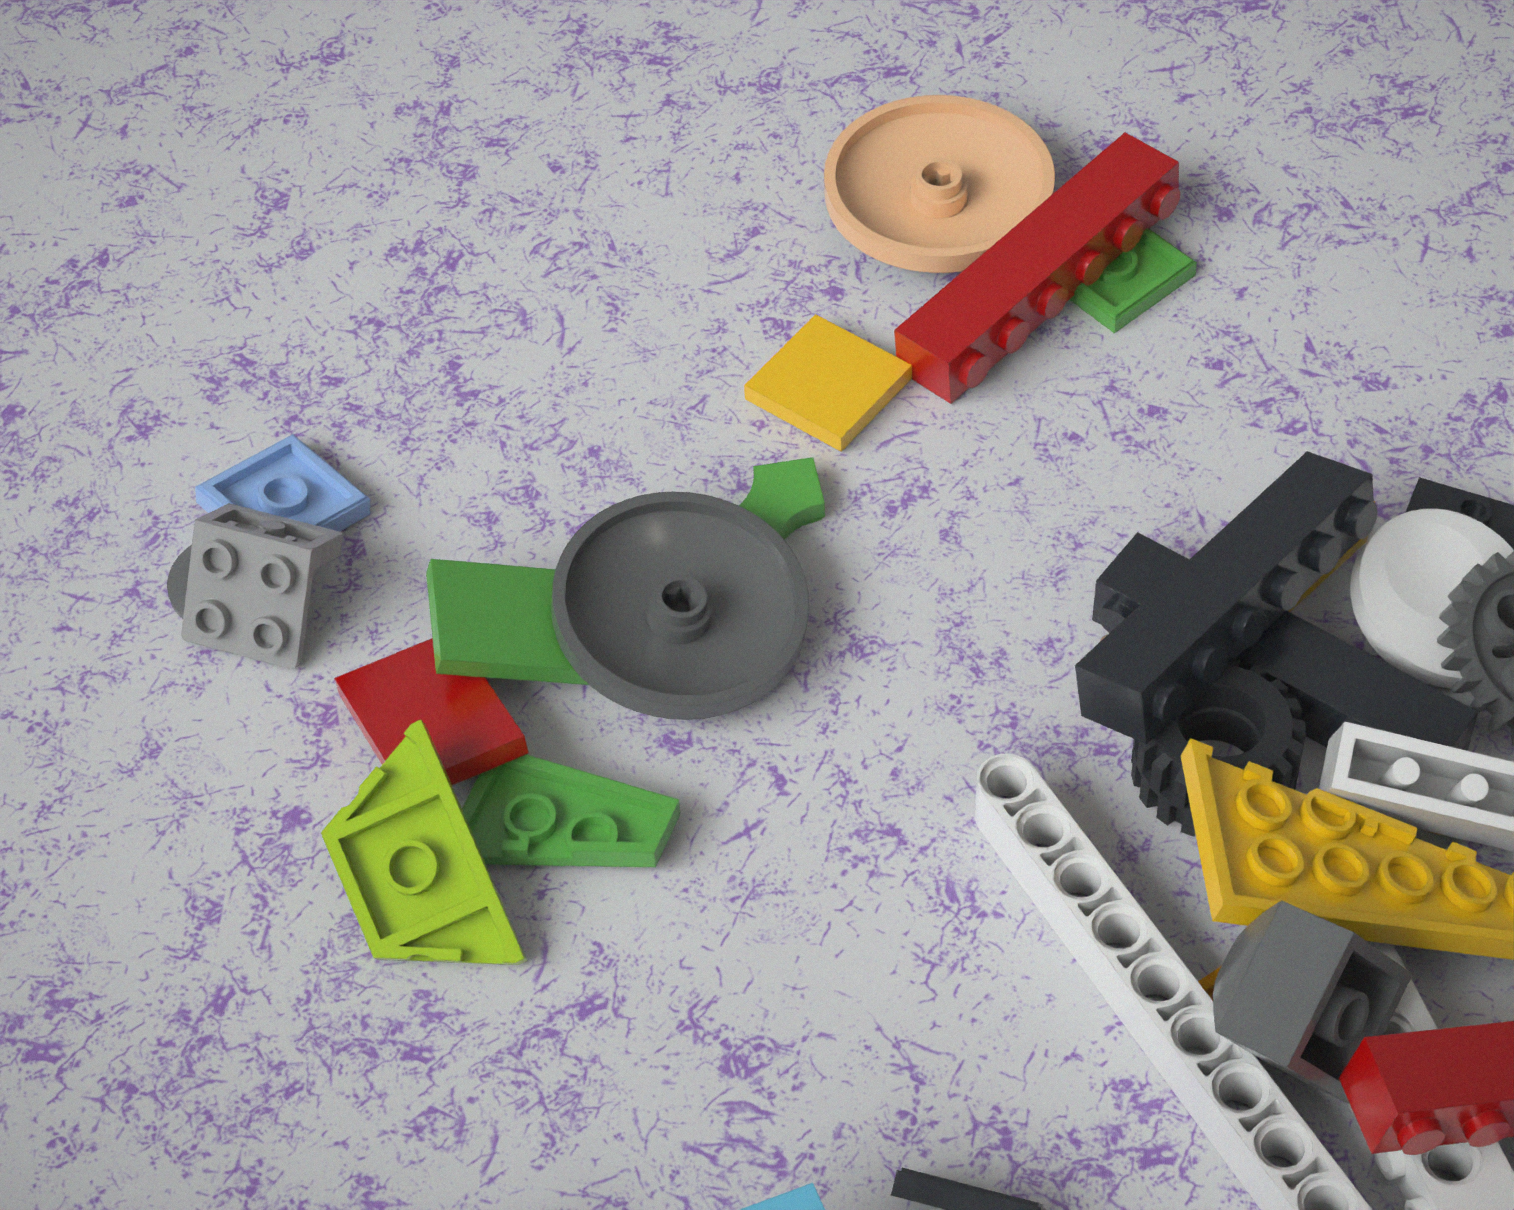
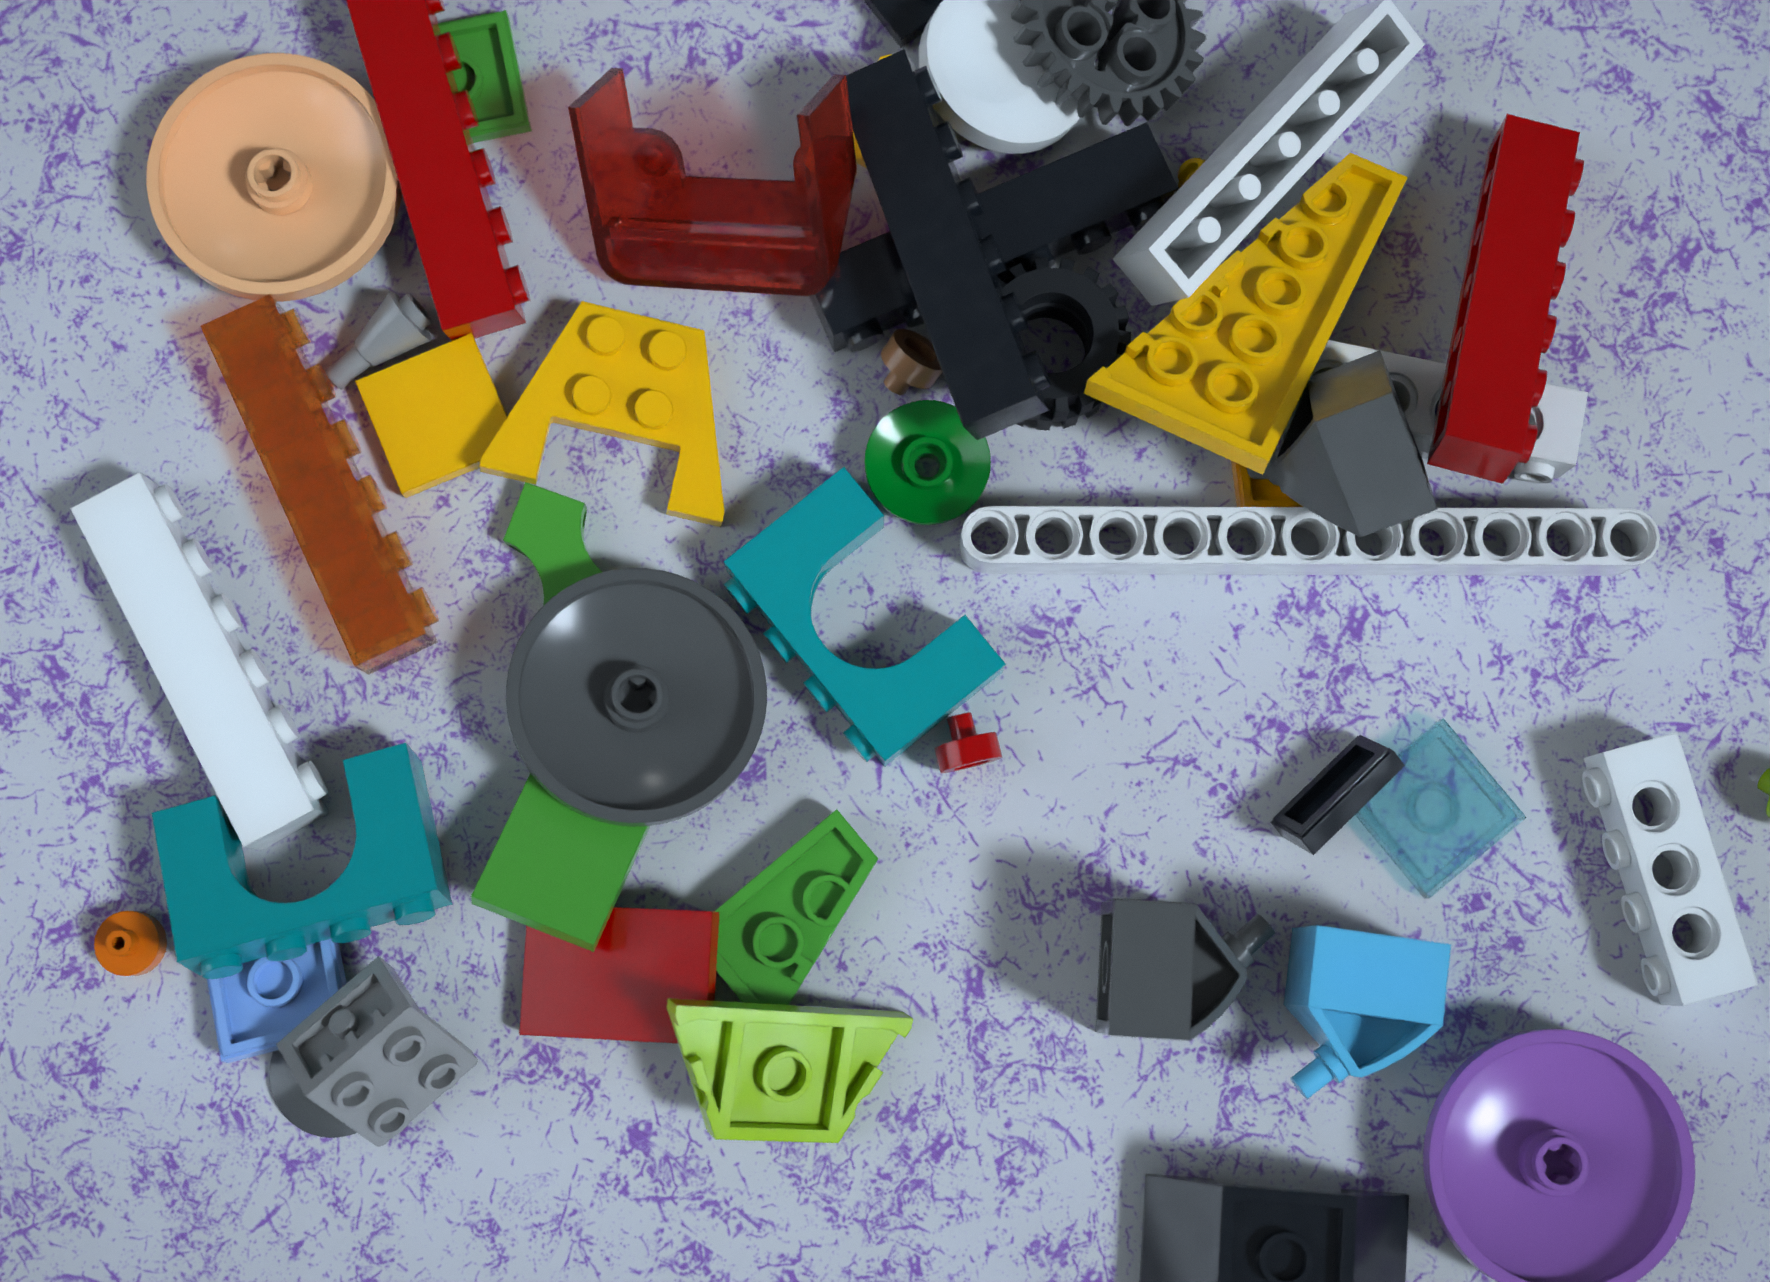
camera: 65 degrees left, 30 degrees up
(259, 400) = (143, 946): none -> orange tile
(407, 511) = (390, 876): none -> teal arch
(513, 331) = (201, 661): none -> white brick
(691, 1111) = (1168, 968): none -> dark grey piece
(710, 334) = (320, 484): none -> clear orange brick
(802, 875) = (966, 747): none -> red tile
(856, 666) = (883, 705): none -> teal arch
(867, 315) = (391, 331): none -> light grey cone
(949, 482) = (628, 382): none -> yellow wing
(1031, 698) = (920, 432): none -> green dish
(1116, 402) = (713, 231): none -> clear red windscreen

